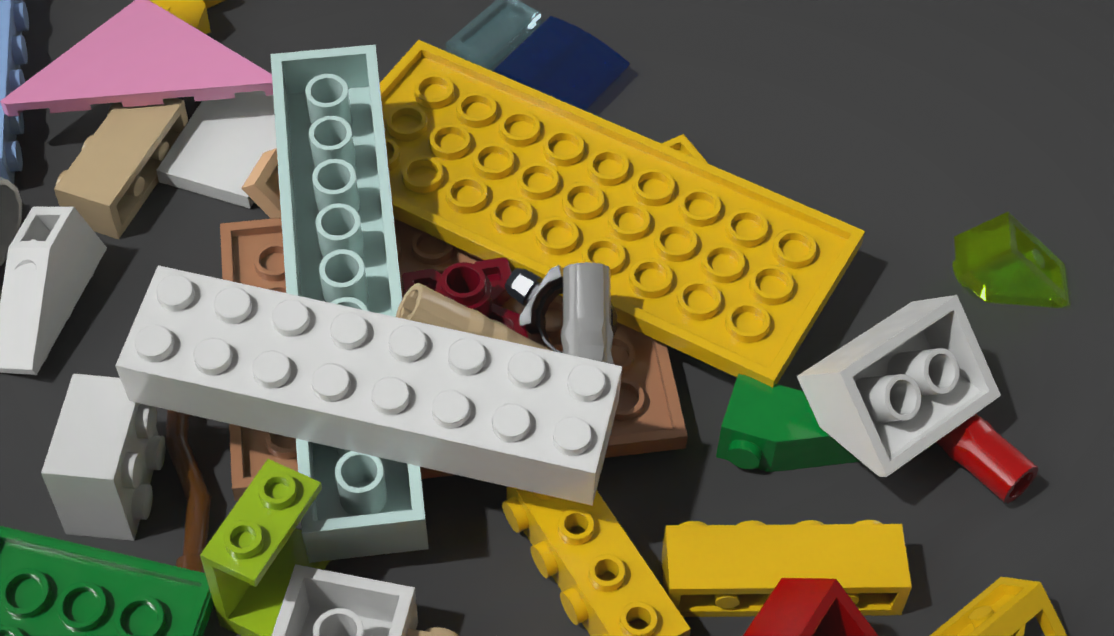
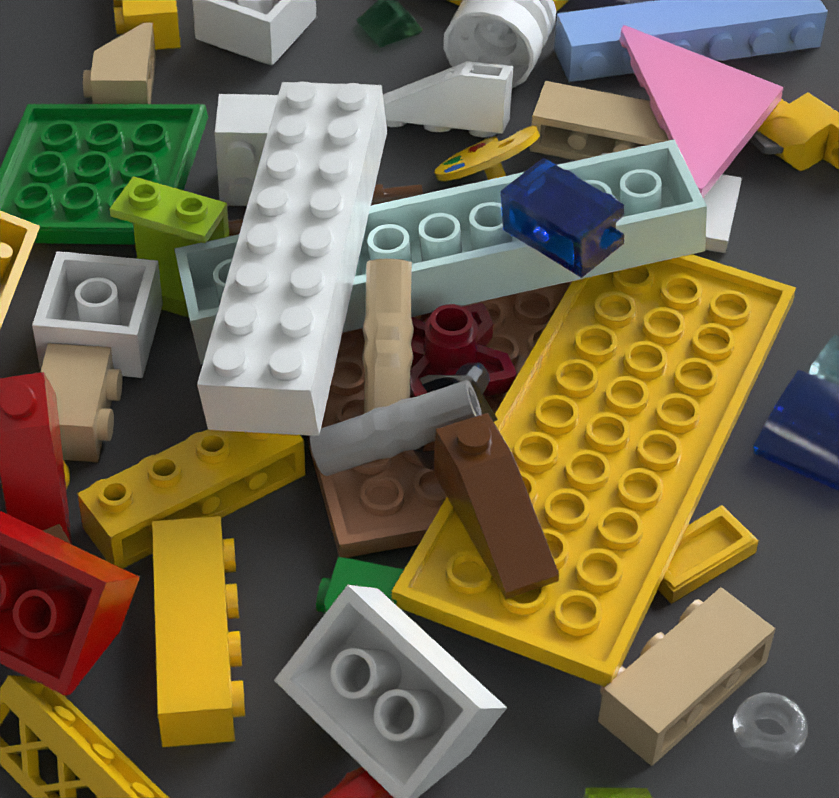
camera: 85 degrees right, 5 degrees down
(131, 273) = (486, 156): none -> yellow piece
(384, 146) = (562, 217): none -> clear blue brick
(689, 280) = (493, 504): none -> reddish brown slope
(822, 179) = (685, 674): none -> tan brick
(871, 174) = (764, 745): none -> clear piece

